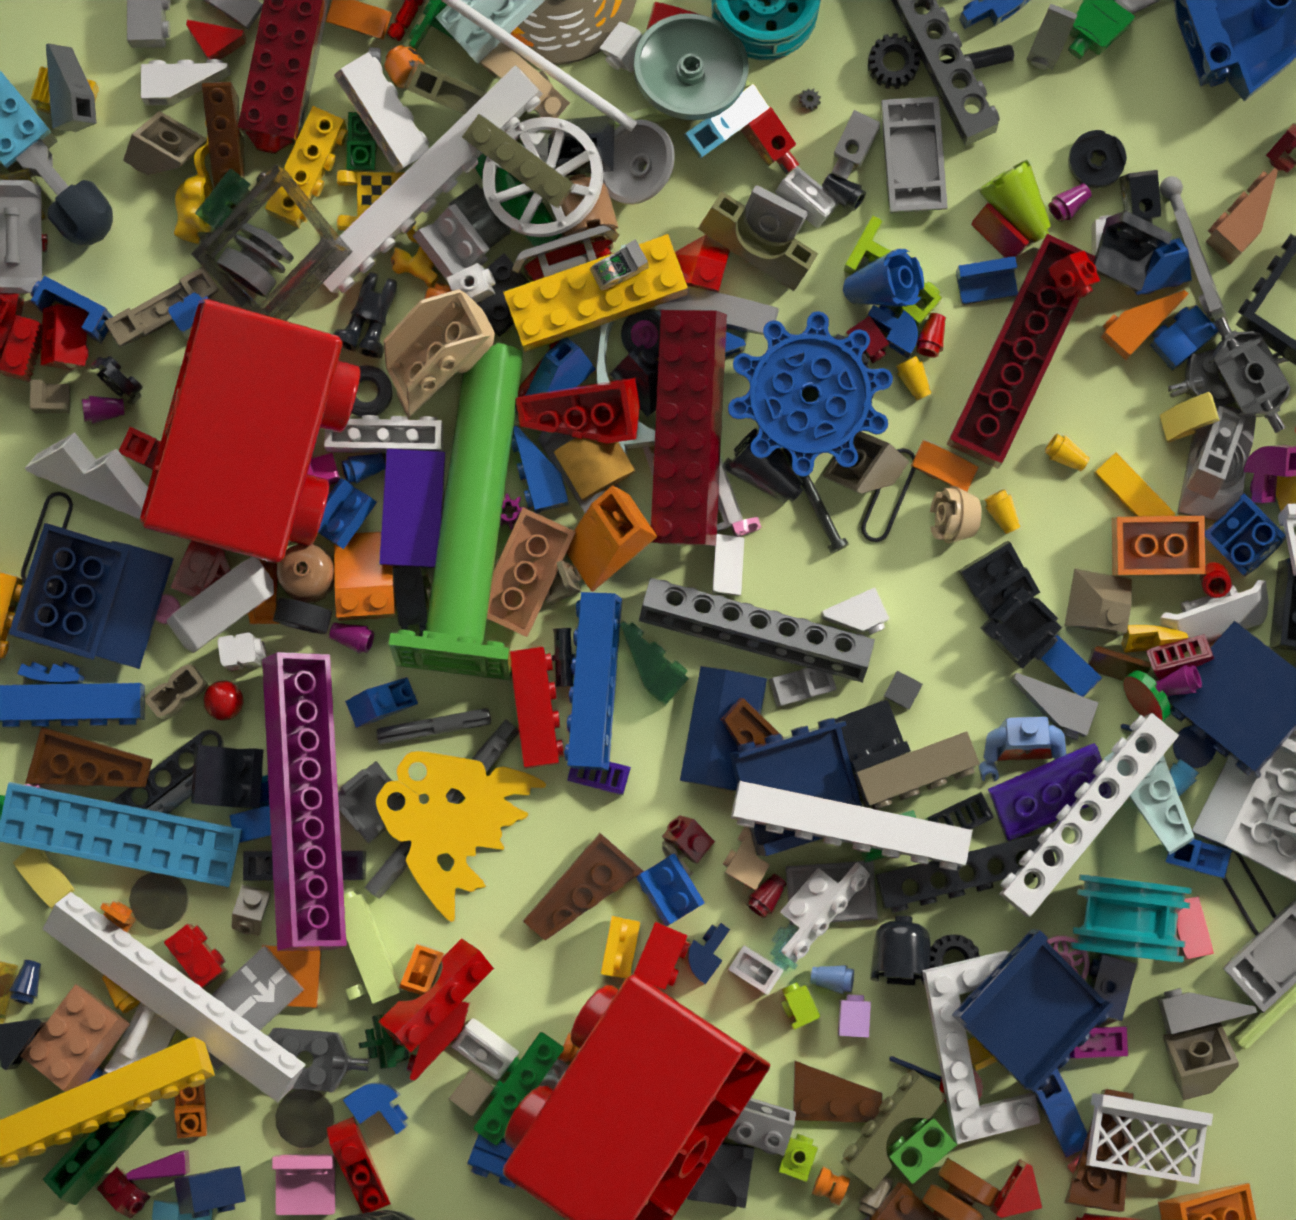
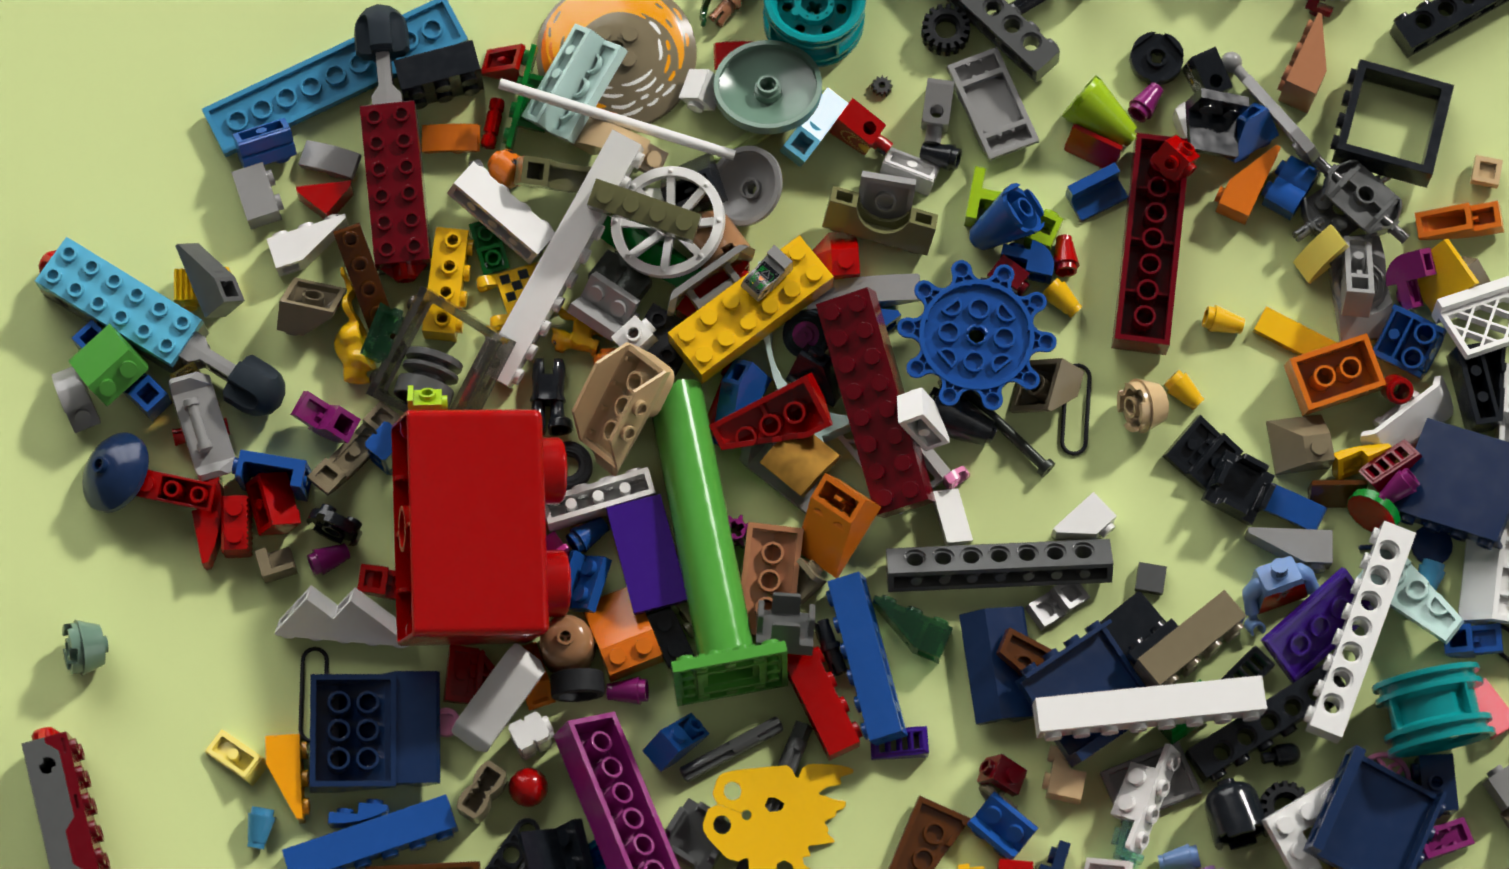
camera: 15 degrees left, 10 degrees down
(142, 266) = (324, 419): none -> magenta brick
(239, 289) = (426, 399): none -> lime brick
(522, 625) = (786, 623): none -> dark grey panel
(543, 478) = (755, 491): blue slope -> none
(726, 461) = (921, 419): none -> white slope
(766, 896) = (1092, 805): dark red cone -> none
(944, 466) = (1115, 366): orange slope -> none
(970, 907) = (1282, 755): none -> black cylinder

